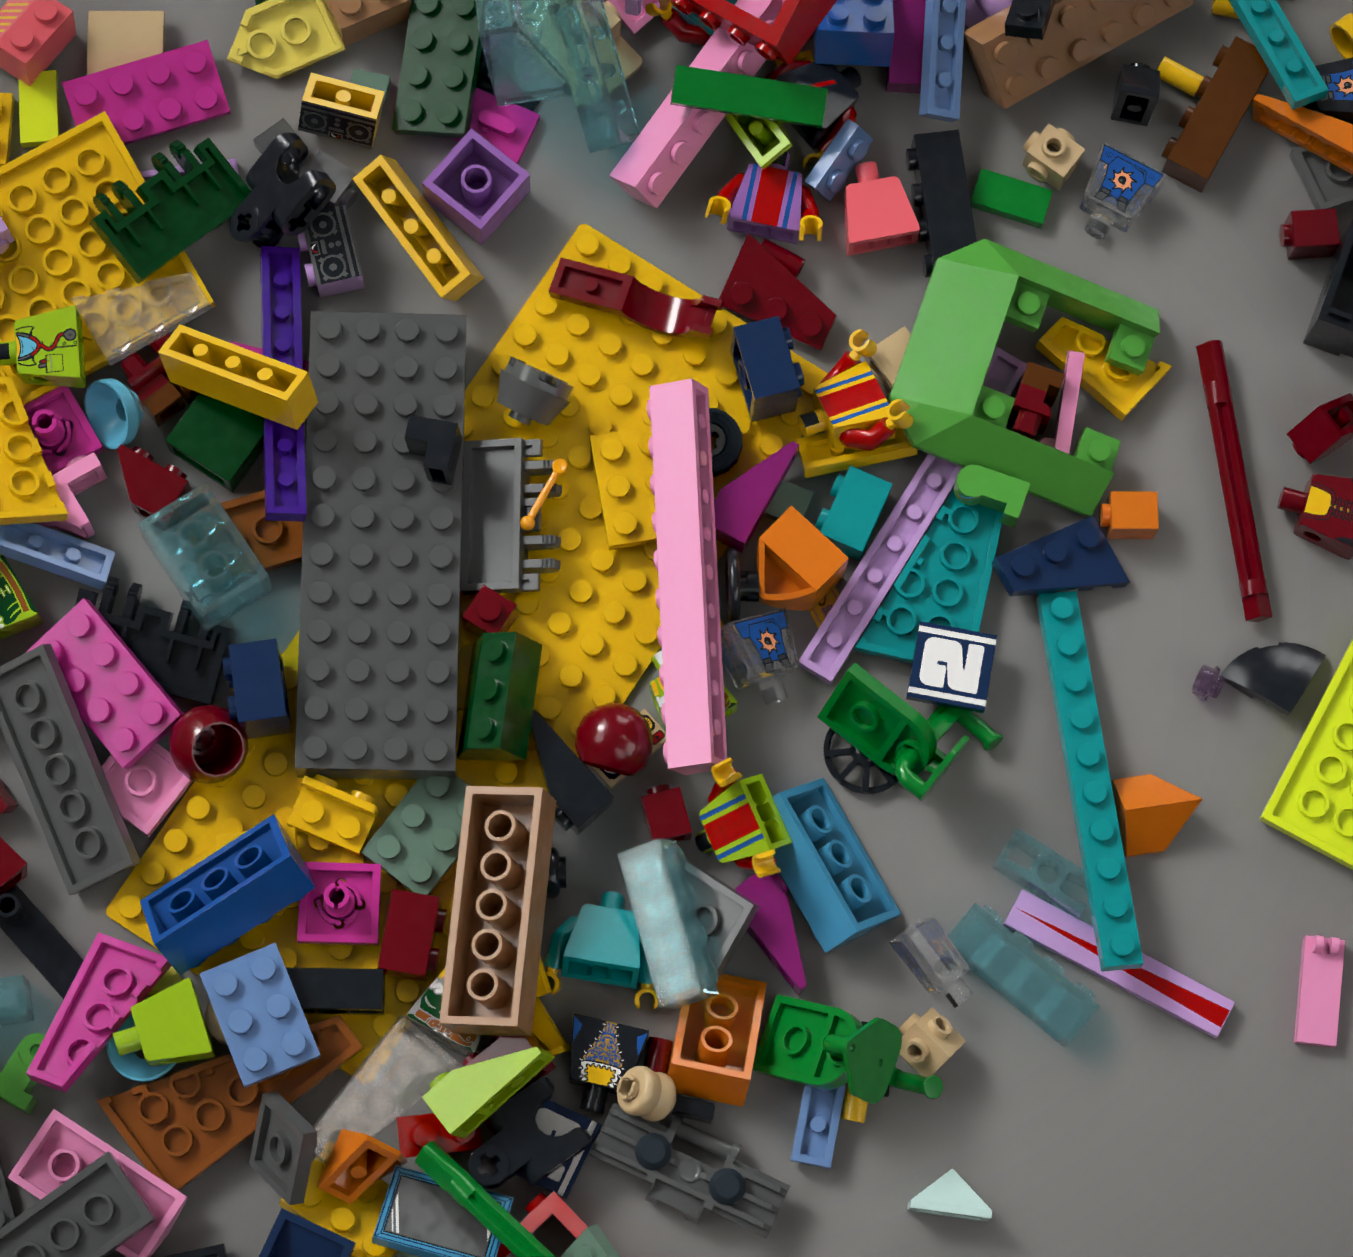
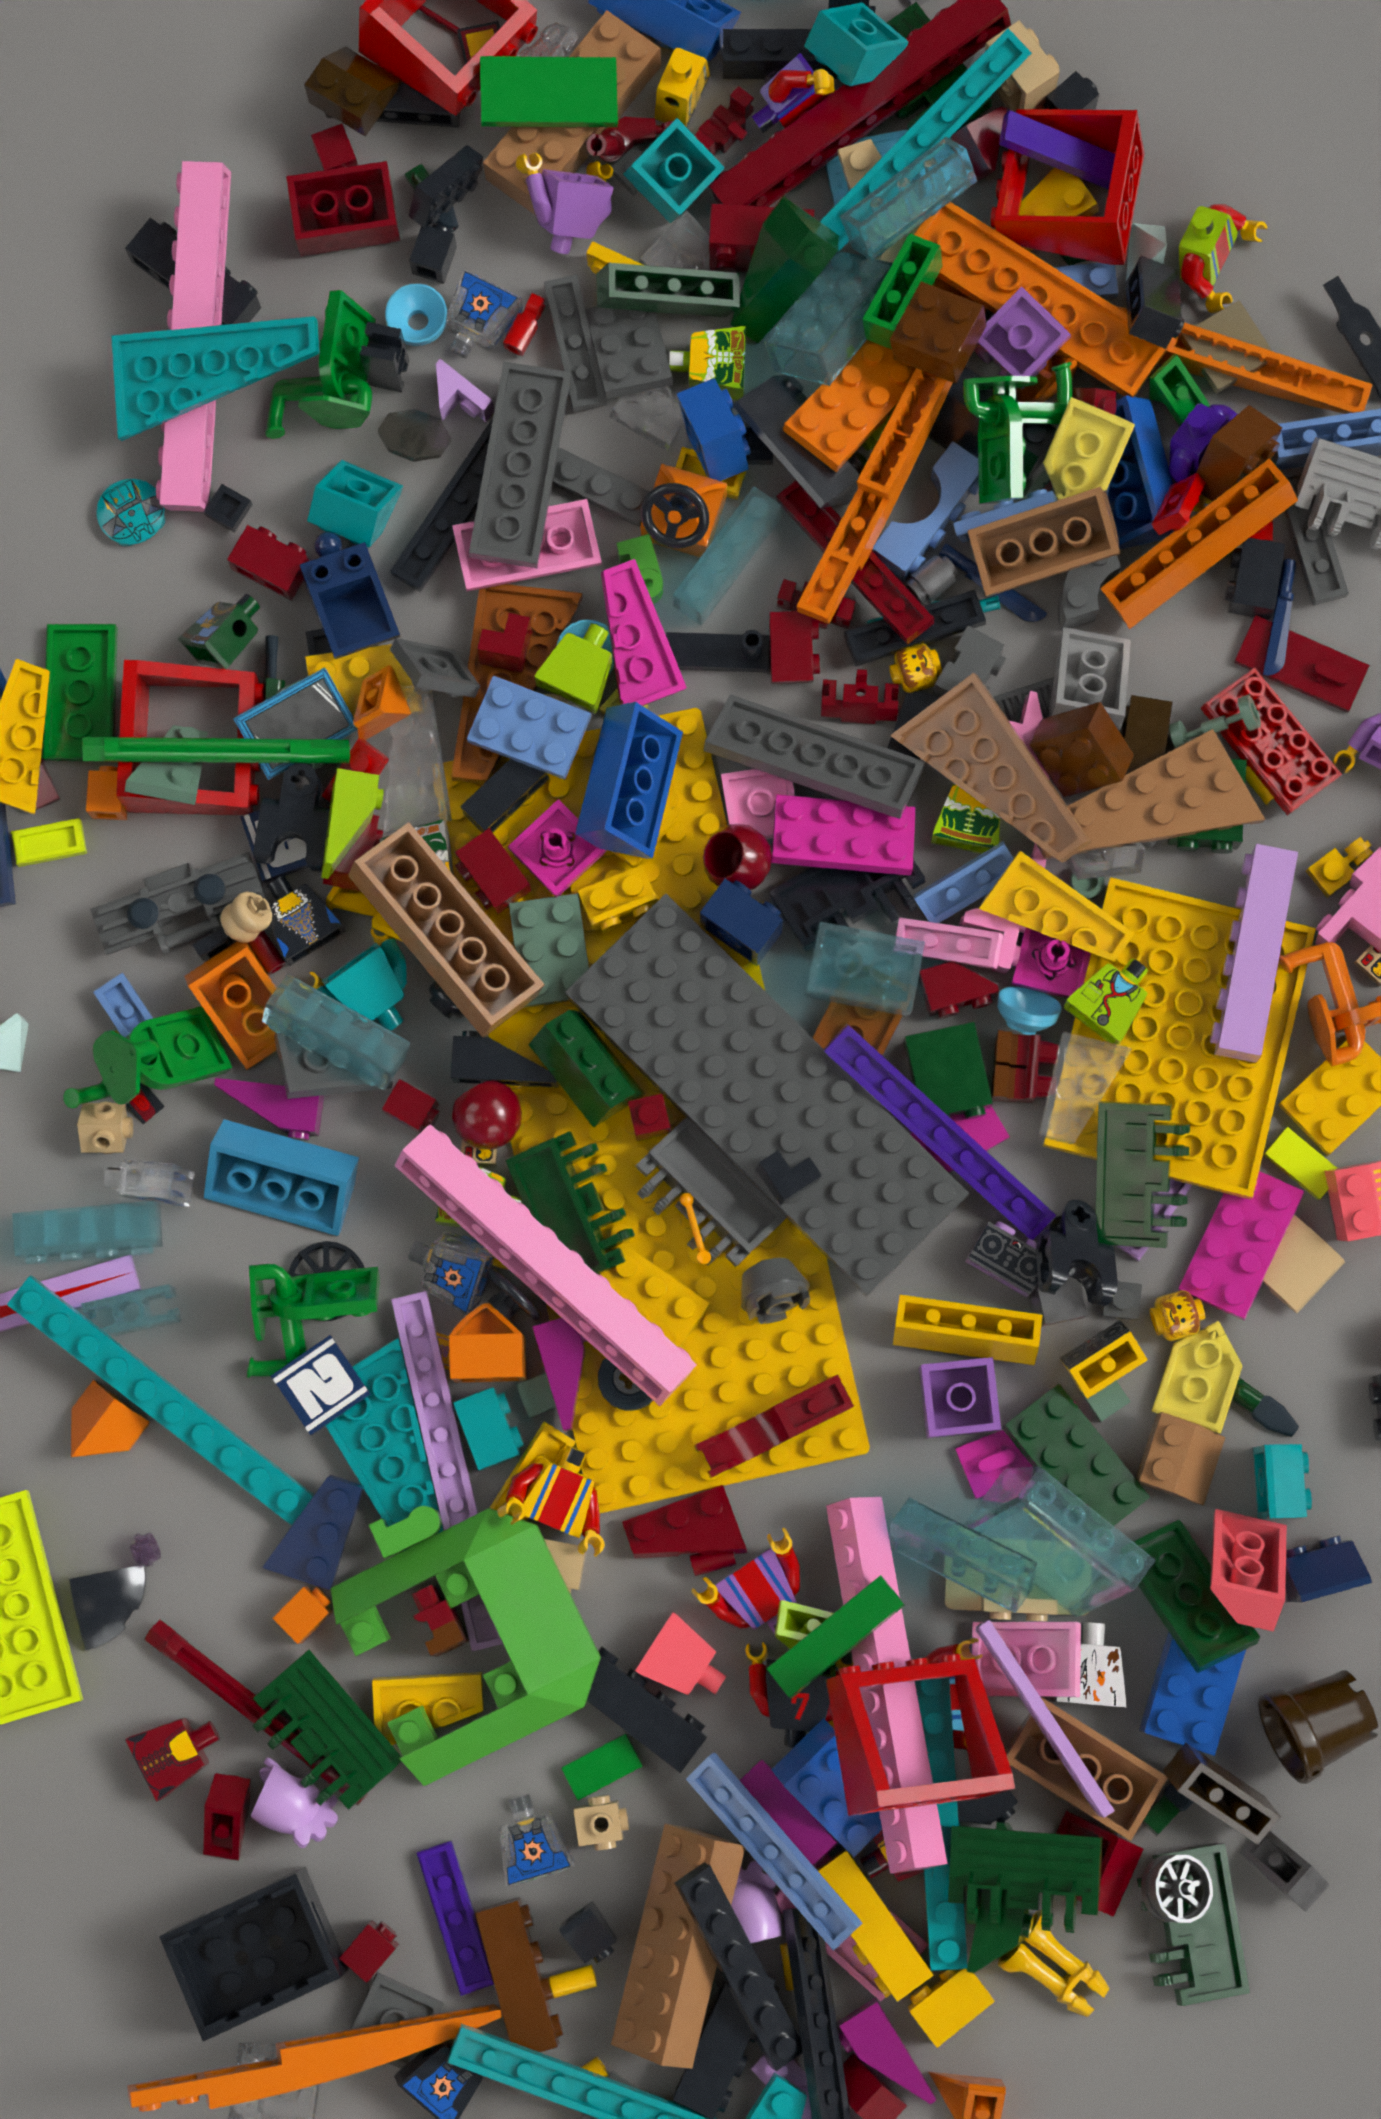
camera: 145 degrees right, 5 degrees up
(116, 519) = (954, 943): none -> bright pink plate
(203, 1101) = (509, 648): none -> dark red piece
(238, 376) = (962, 1095): yellow brick -> none
(252, 92) = (1177, 1315): none -> yellow head
(628, 615) = (552, 1195): none -> dark green hinge
(742, 821) = (349, 1142): torso -> none
(766, 368) = (637, 1460): dark blue brick -> none
(839, 160) = (741, 1679): medium blue plate -> none
(1067, 403) = (398, 1615): bright pink hinge -> none
(1190, 413) = (330, 1728): none -> dark green hinge
(1223, 200) = (455, 1917): none -> dark purple tile
(1272, 385) = (292, 1808): none -> lavender piece

